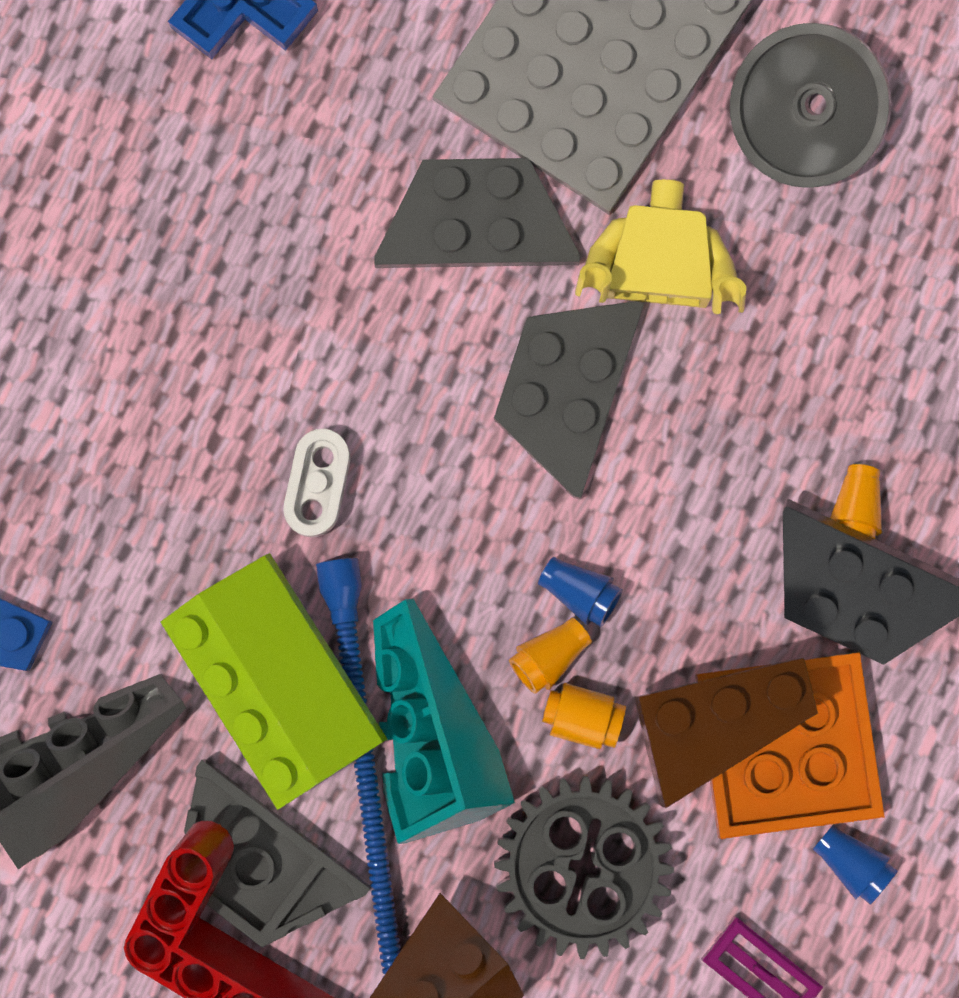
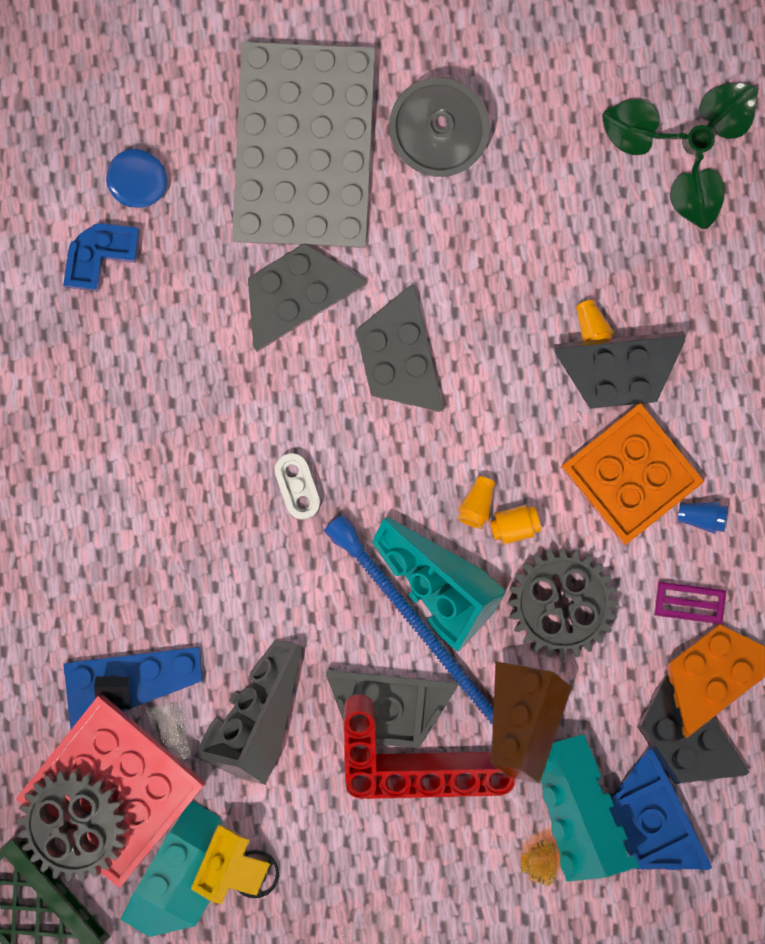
camera: 30 degrees left, 0 degrees up
(273, 680) = (339, 603): lime slope -> none
(582, 591) = (475, 459): blue cone -> none
(662, 256) = (409, 254): light yellow torso -> none
(718, 722) = (586, 483): reddish brown wedge -> none

